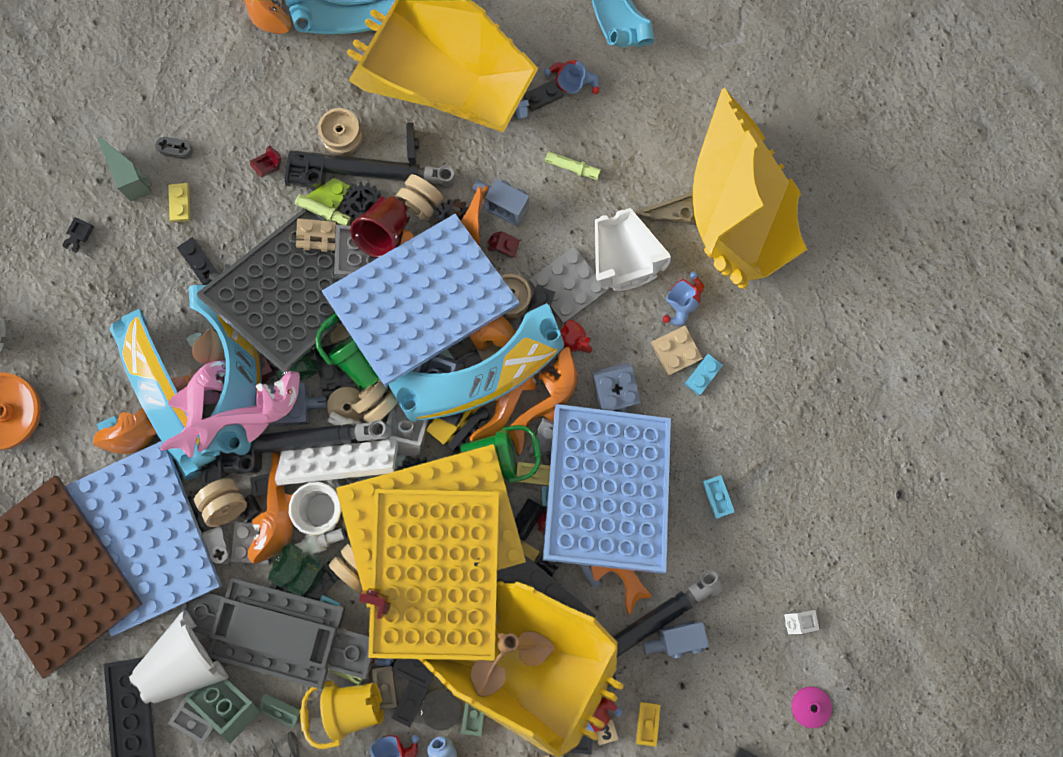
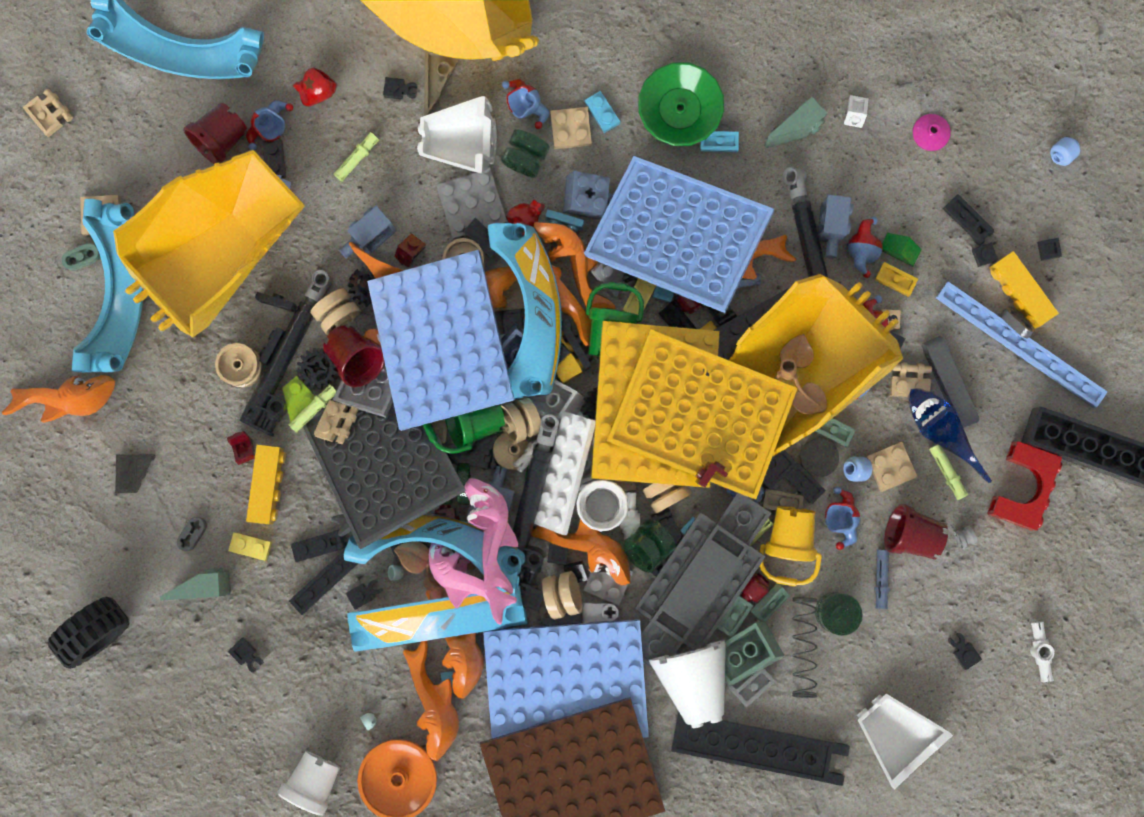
camera: 60 degrees left, 5 degrees up
(49, 88) = (88, 632): none -> black tyre
(49, 365) = (369, 720): none -> light aqua hinge
(73, 428) = (439, 714): none -> orange piece
(161, 276) = (322, 583): none -> black plate
(166, 318) = (361, 595): none -> black plate
(214, 75) = (131, 471): none -> clear smoke wing
(239, 194) = (265, 484): none -> yellow brick
(255, 680) = (735, 616): none -> sand green plate
(289, 691) = (756, 588): none -> dark red head
(362, 152) = (267, 352): none -> black plate
(546, 35) = (216, 133): none -> dark red piece
(584, 383) = (572, 222): none -> medium azure plate
(623, 106) = (315, 87): none -> red piece
(640, 316) = (525, 153): none -> clear green wheel
(651, 178) = (396, 87): none -> black plate
(668, 679) = (864, 246): none -> piece
(681, 717) = (901, 248): none -> green slope
(758, 444) = (683, 86): none -> green dish
(766, 571) = (799, 125): none -> sand green slope

